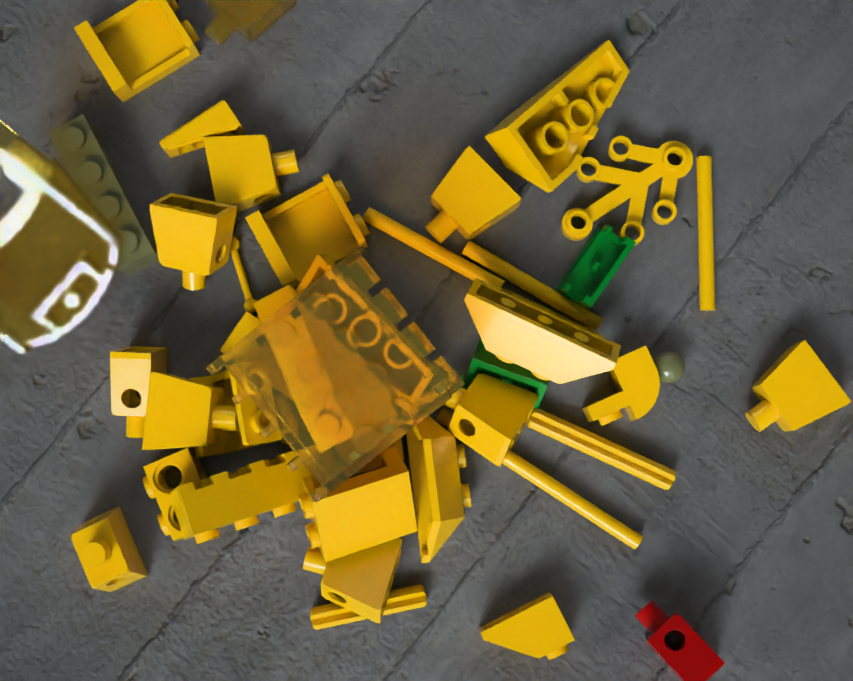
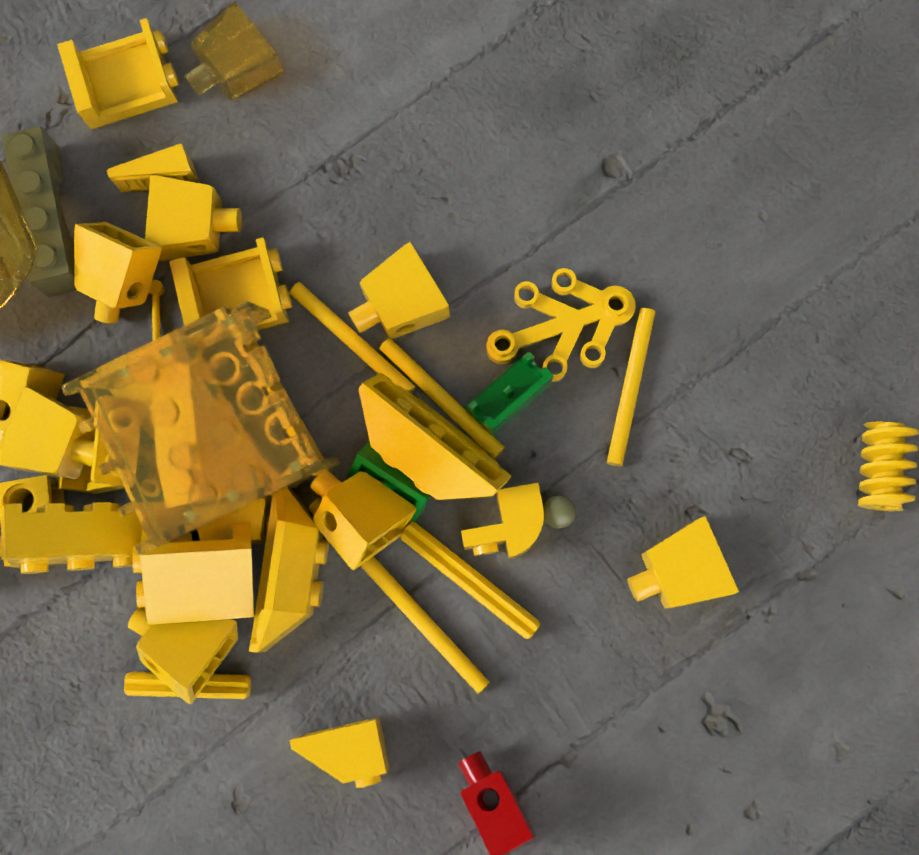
camera: 15 degrees right, 5 degrees down
(553, 127) = (503, 245): yellow wedge -> none

